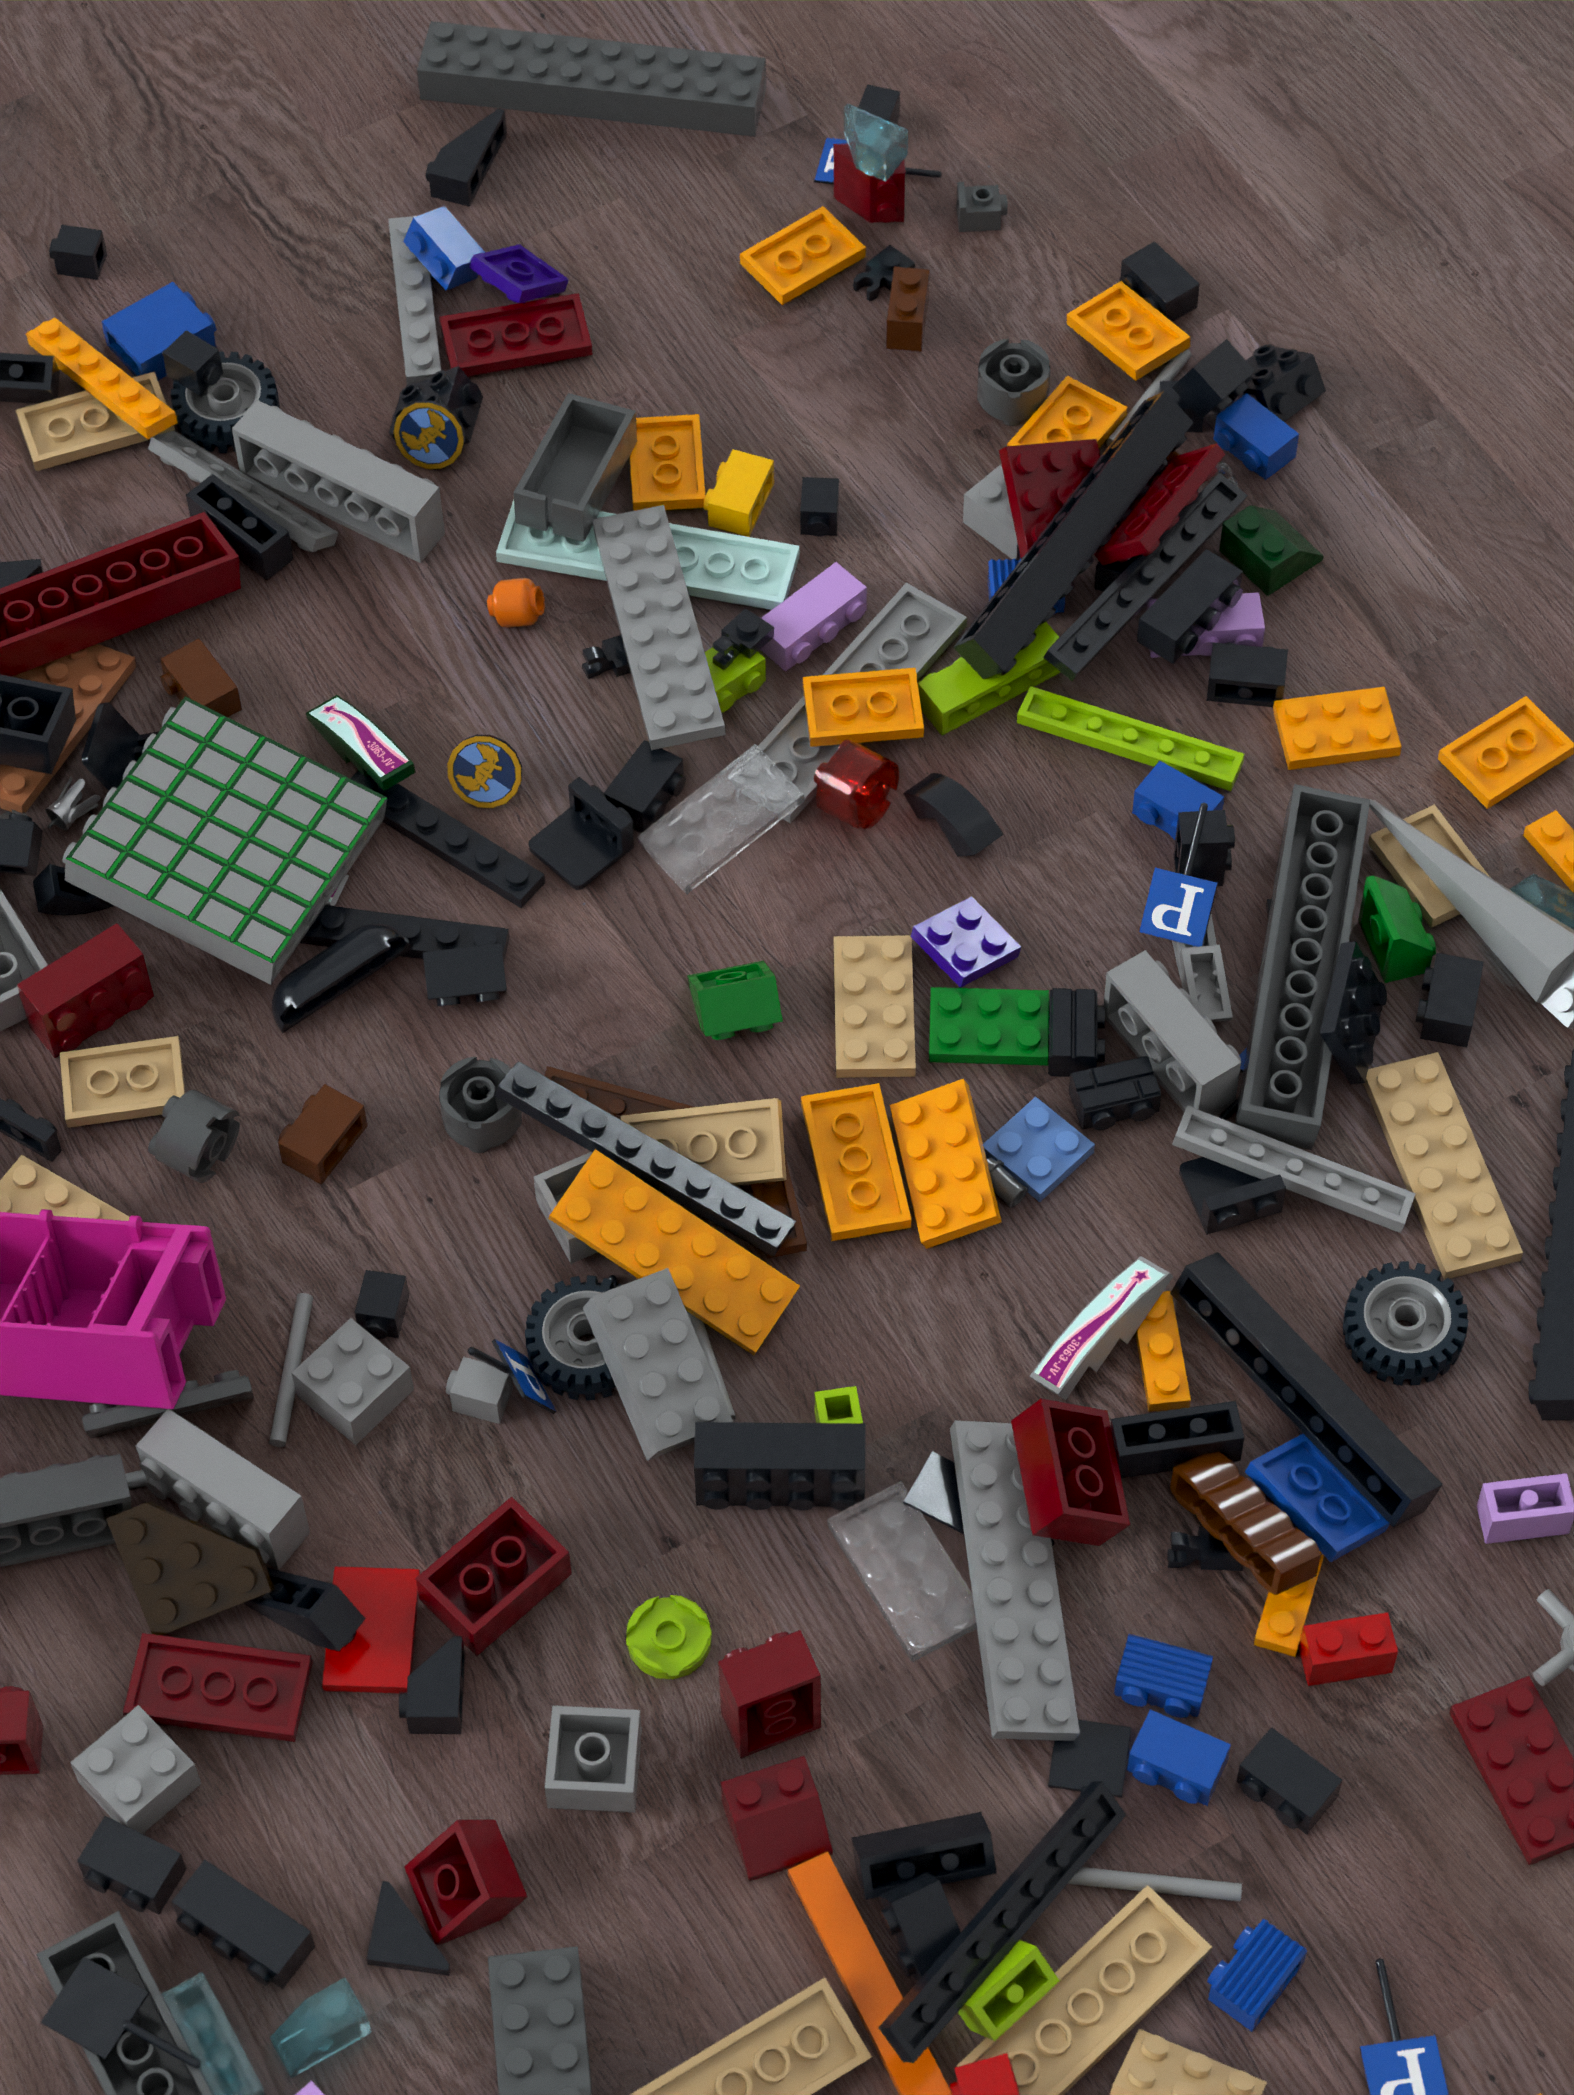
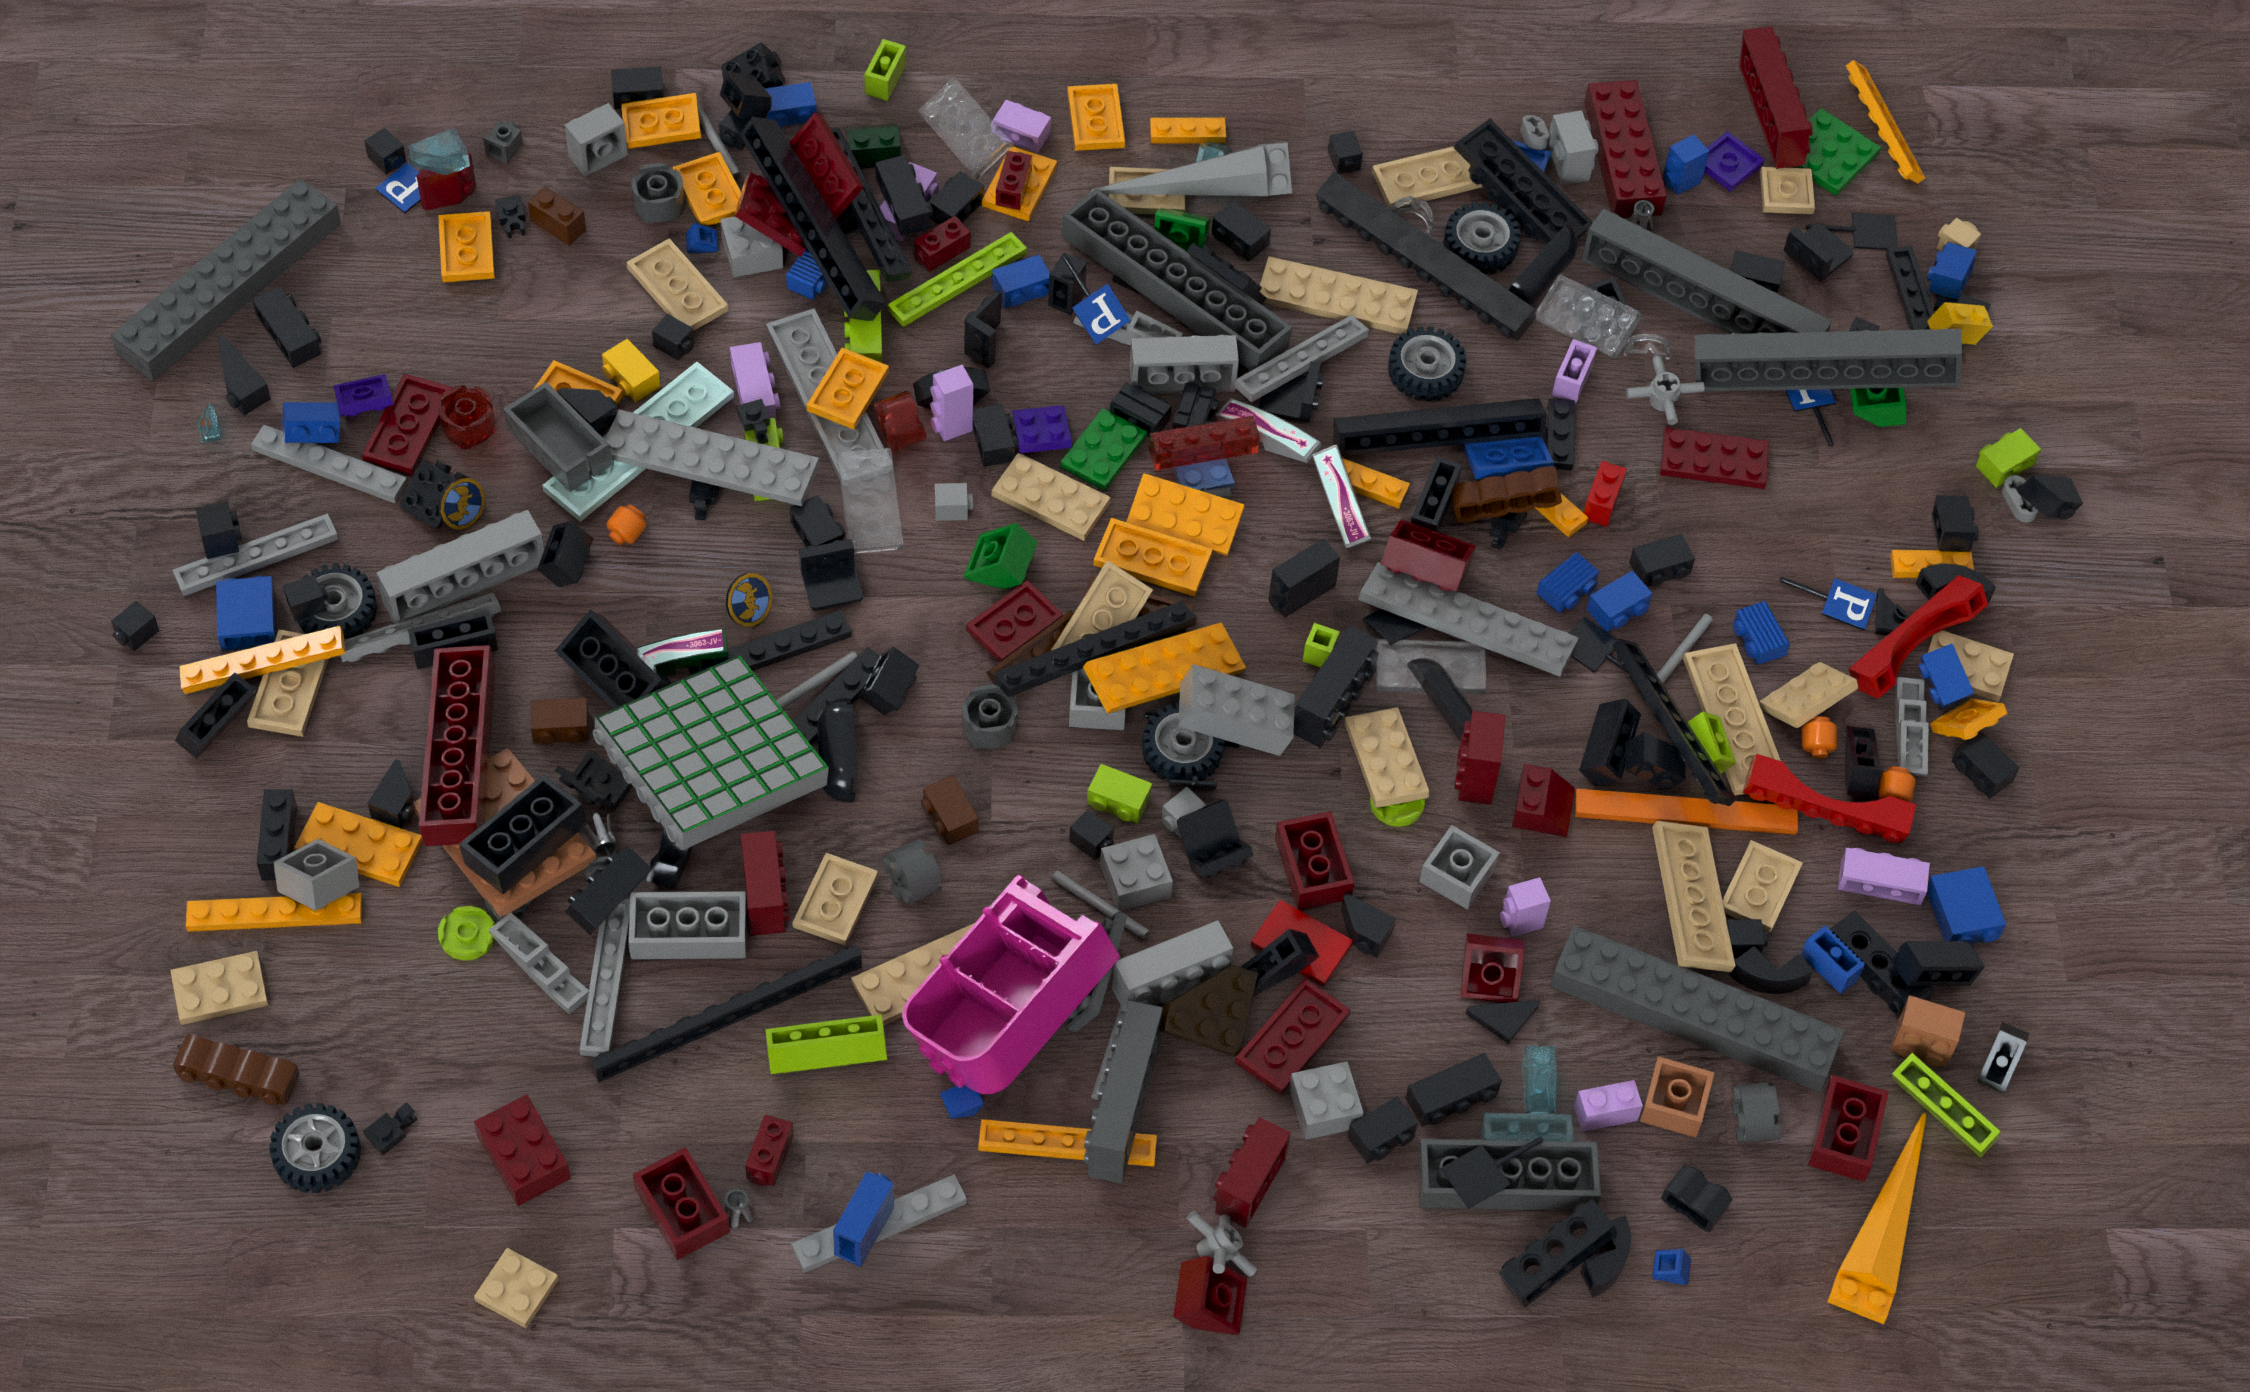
camera: 65 degrees left, 0 degrees up
(243, 248) = (219, 530): none -> black brick
(245, 302) = (256, 554): none -> light grey plate
(299, 682) = (609, 661): none -> black brick
(390, 173) = (208, 425): none -> clear light blue slope
(416, 899) = (816, 680): none -> light grey bar
(429, 567) = (565, 554): none -> black brick
(452, 1442) = (1212, 839): none -> black bracket
(462, 1304) = (1119, 794): none -> lime brick
(553, 371) = (467, 416): none -> clear red brick
(567, 162) = (287, 326): none -> black brick
(574, 1871) = (1525, 907): none -> lavender brick
(640, 477) = (591, 406): none -> black slope
(651, 1058) = (1013, 621): none -> dark red plate
(721, 1587) = (1386, 757): none -> tan plate
(782, 903) = (952, 502): none -> light grey brick
(856, 1611) = (1442, 693): none -> black brick
(898, 473) = (677, 285): none -> tan plate
(909, 817) = (952, 403): none -> lavender brick
(915, 893) = (993, 435): none -> black brick
(928, 1342) = (1303, 578): none -> black brick
(985, 459) = (701, 239): none -> blue slope
(1039, 281) = (596, 139): none -> light grey brick
(1058, 1120) = (1204, 443): none -> clear red brick
(1063, 792) = (981, 332): none -> black bracket
(1149, 1191) = (1274, 432): none -> slope
(1168, 693) = (942, 244): none -> dark red brick
(1317, 709) = (1013, 180): none -> dark red brick
(1367, 624) = (965, 127): none -> clear plate
(1385, 497) = (885, 70): none -> lime brick
(1418, 1548) = (1561, 432): none -> black plate
(1423, 681) = (1023, 125): none -> lavender brick

